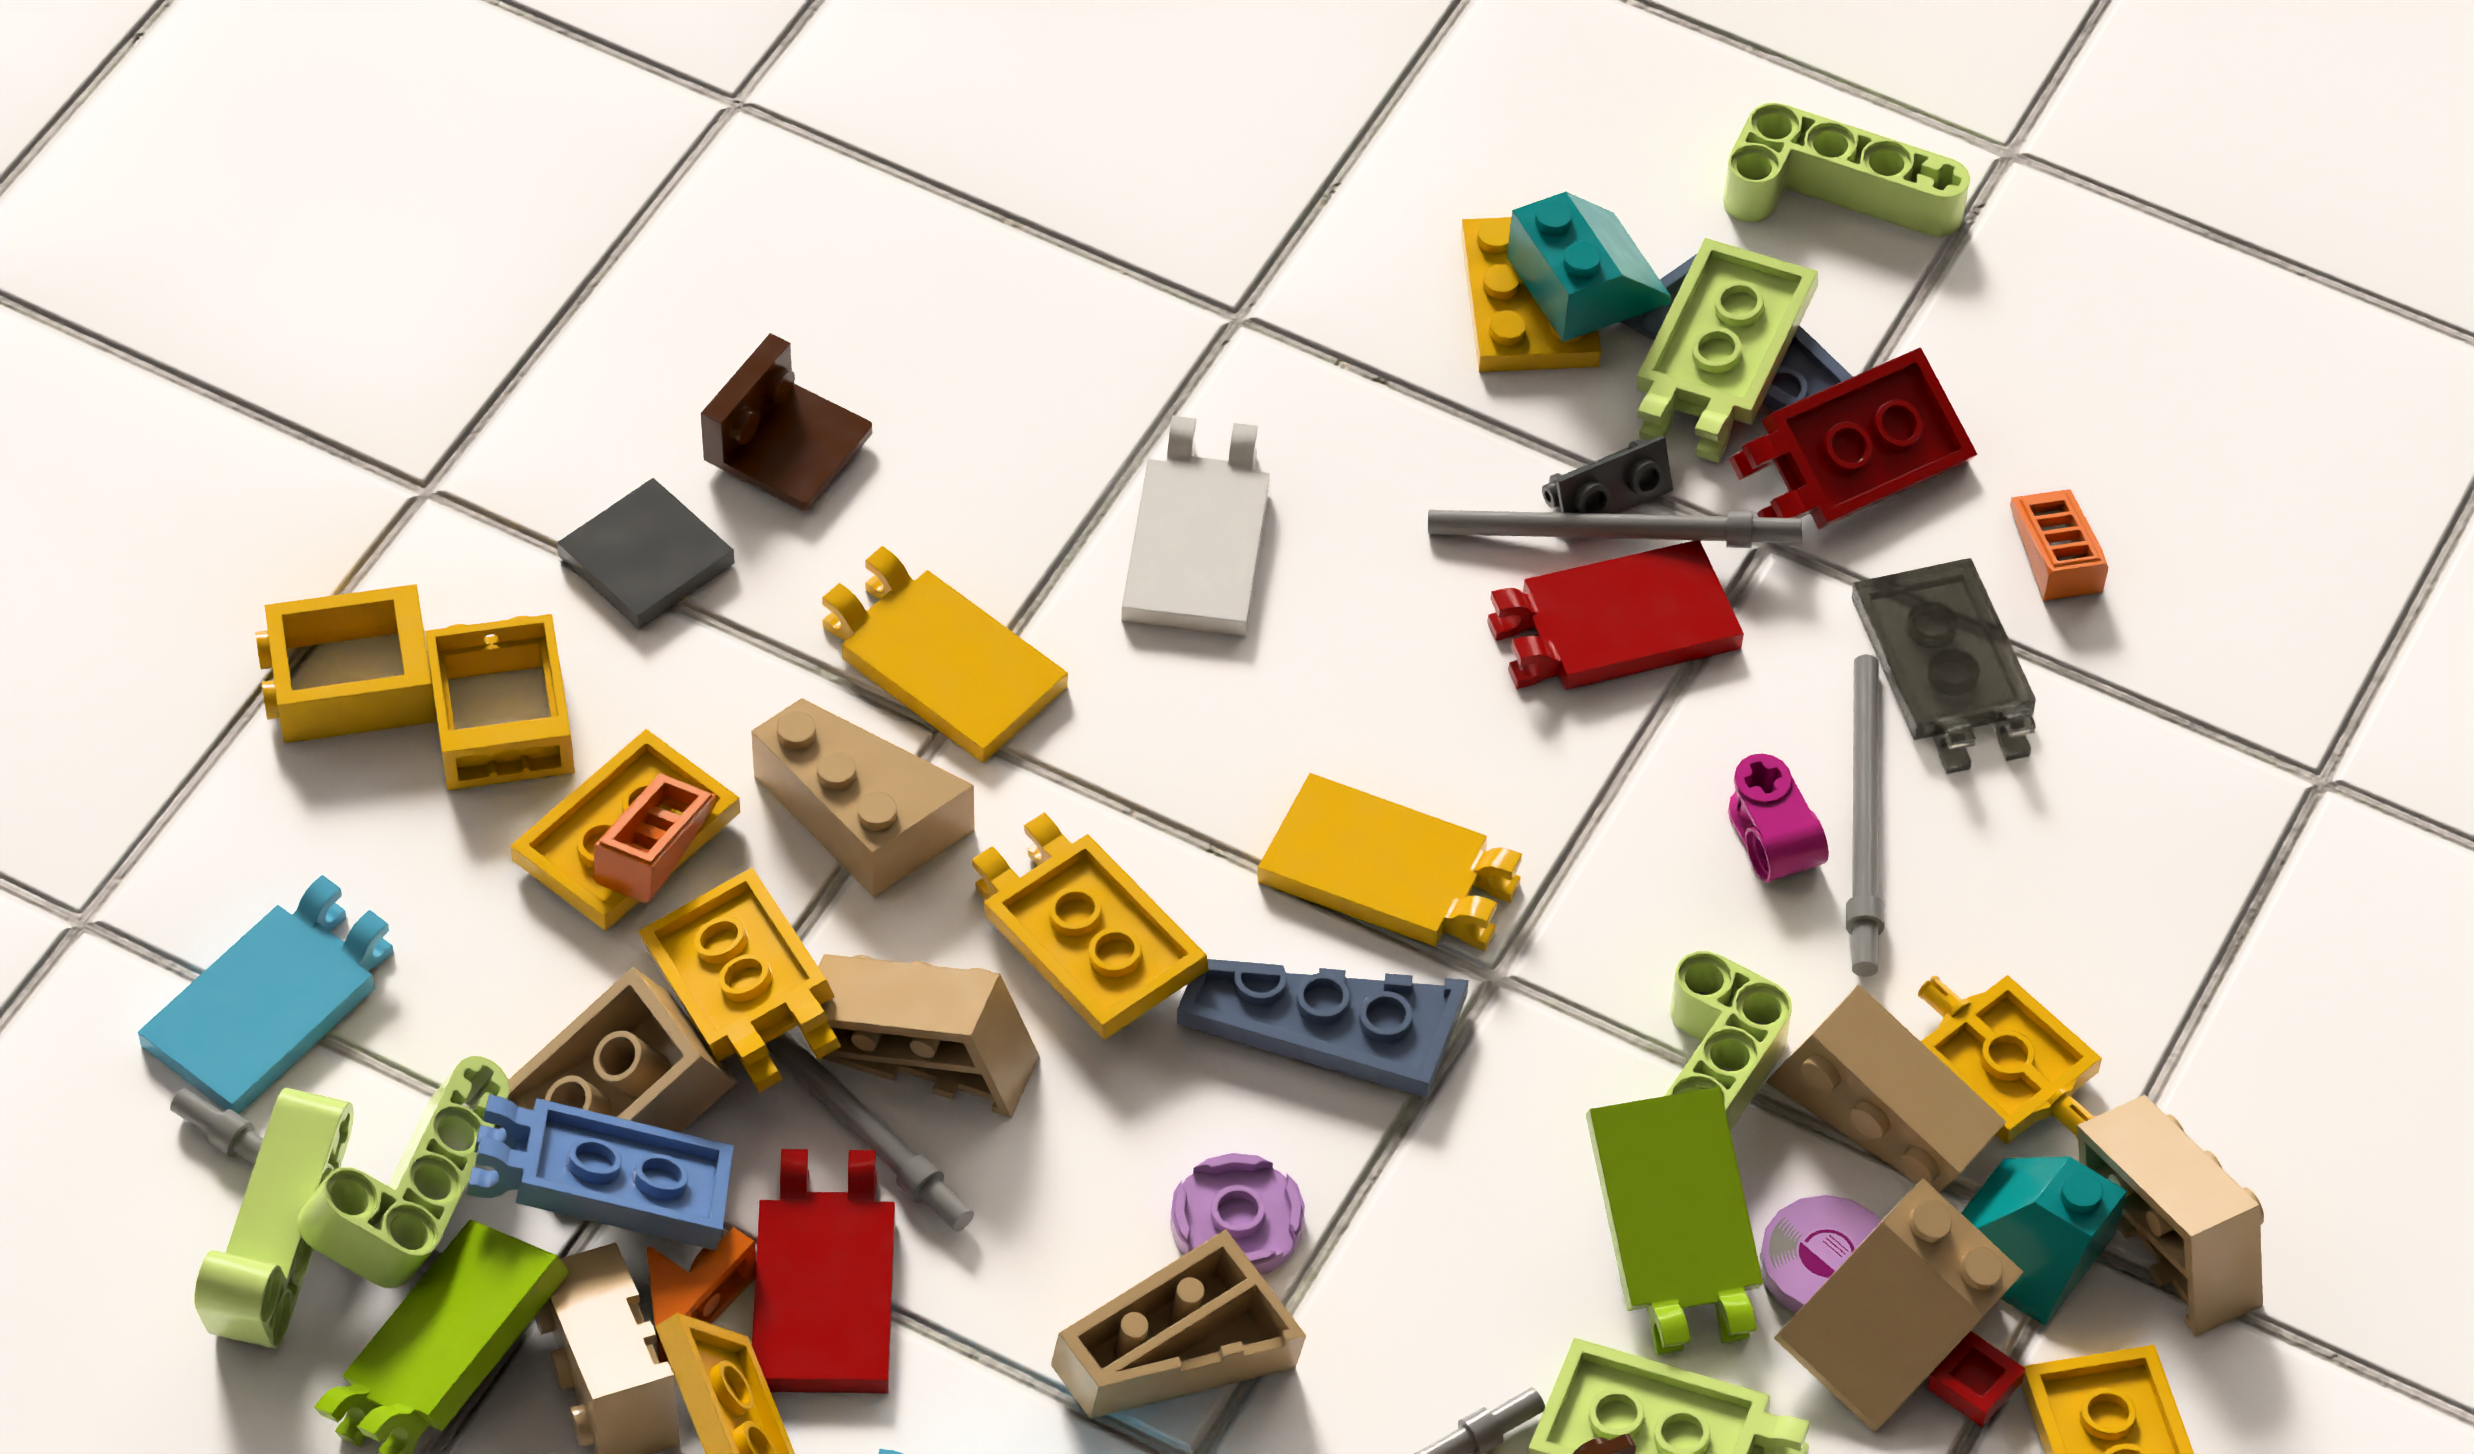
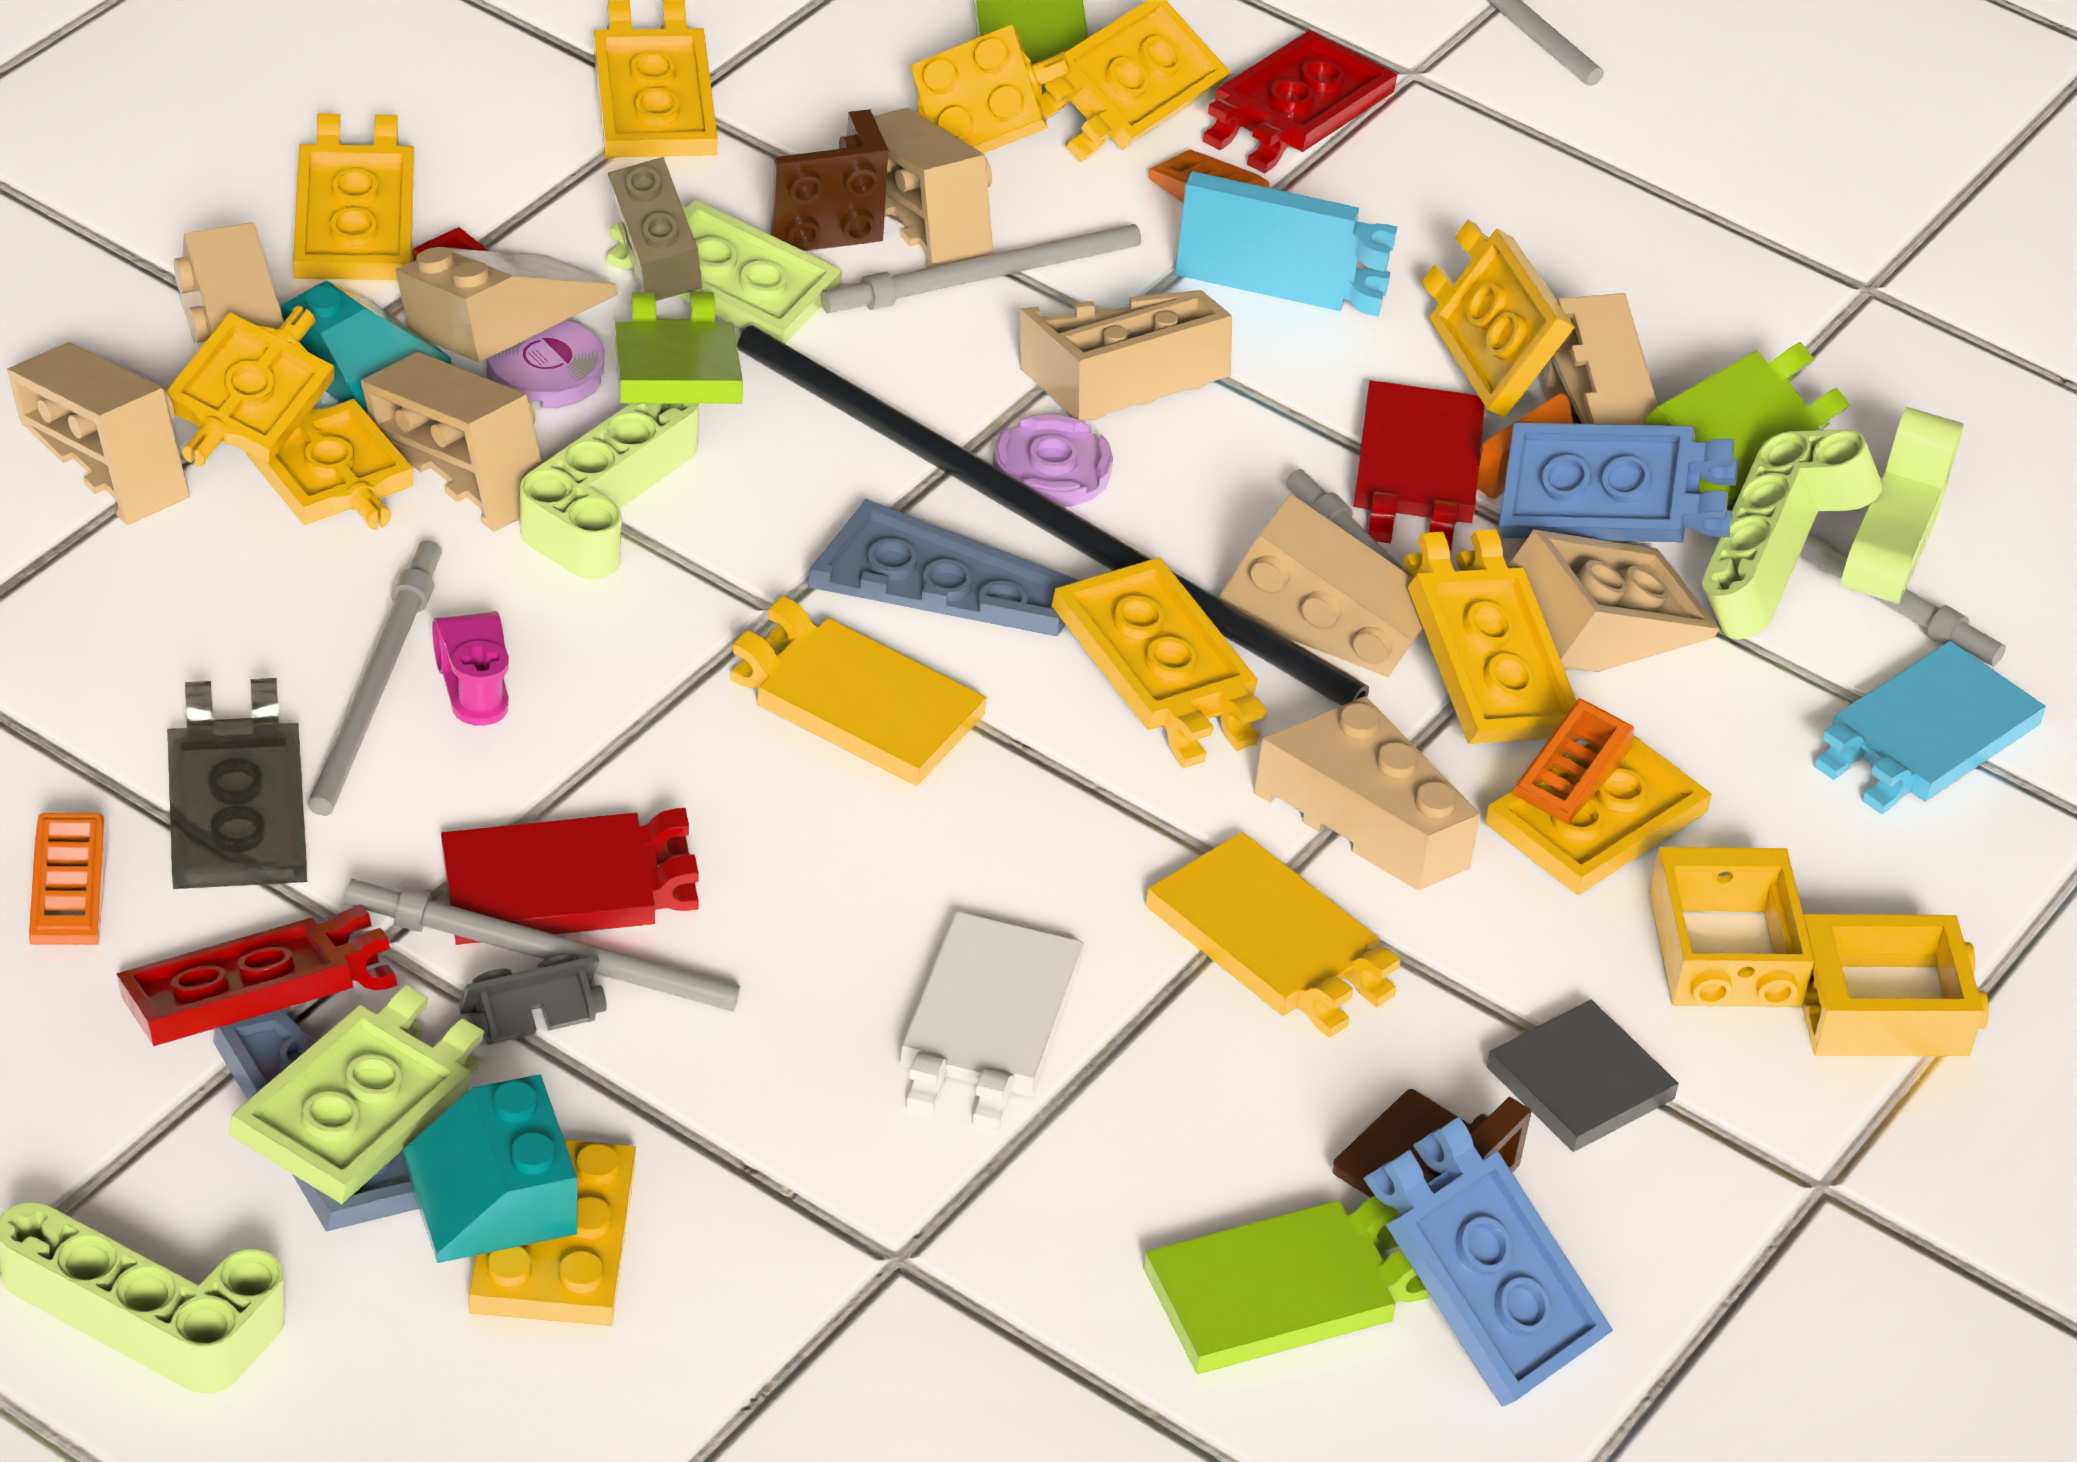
camera: 175 degrees left, 10 degrees down
(735, 299) = (1488, 1262): none -> medium blue tile
(905, 324) = (1281, 1282): none -> lime tile
(1301, 1165) = (1040, 510): none -> black piece
(1751, 1371) = (655, 229): none -> dark tan brick
(2113, 1060) = (250, 386): none -> yellow plate
(2260, 1040) = (105, 422): none -> tan wedge

